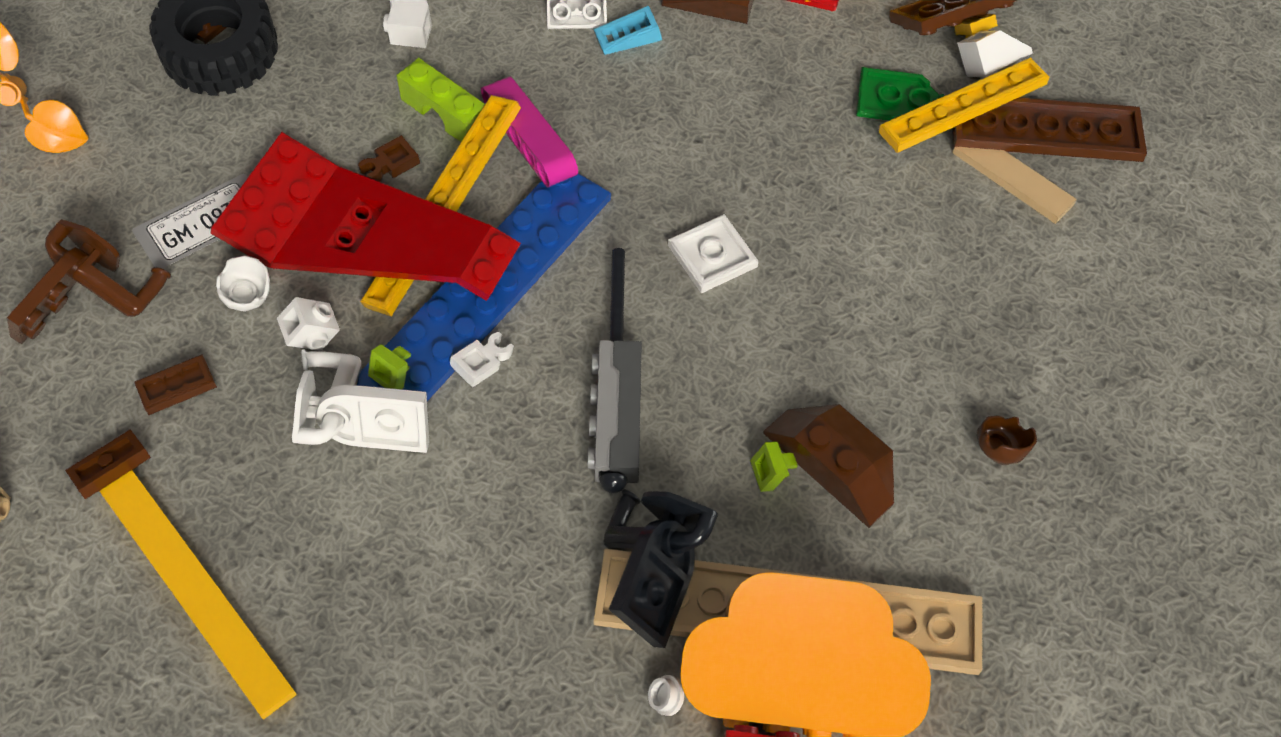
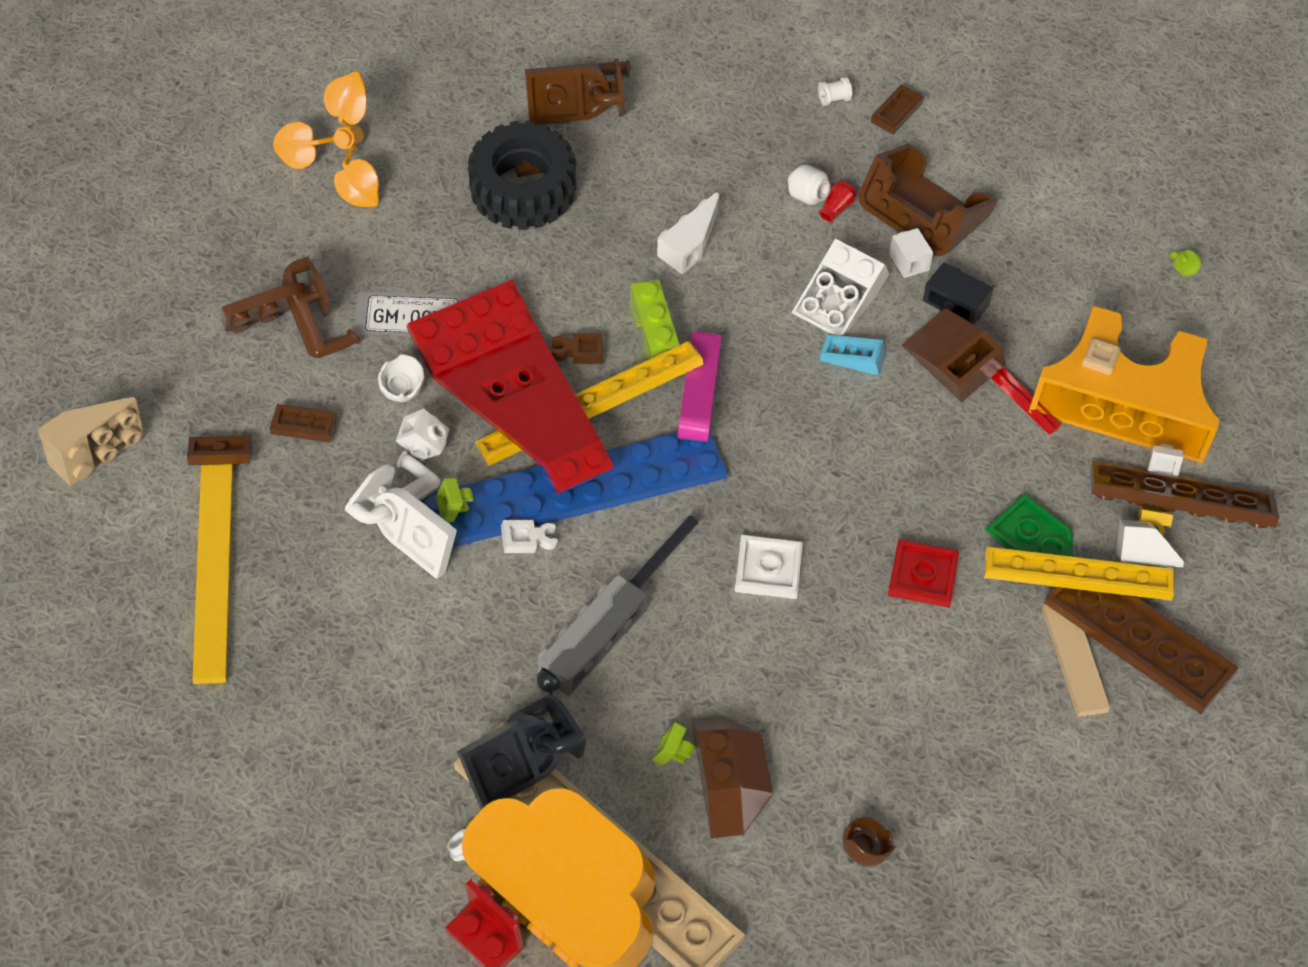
camera: 35 degrees right, 5 degrees down
(843, 180) = (923, 573): none -> red plate

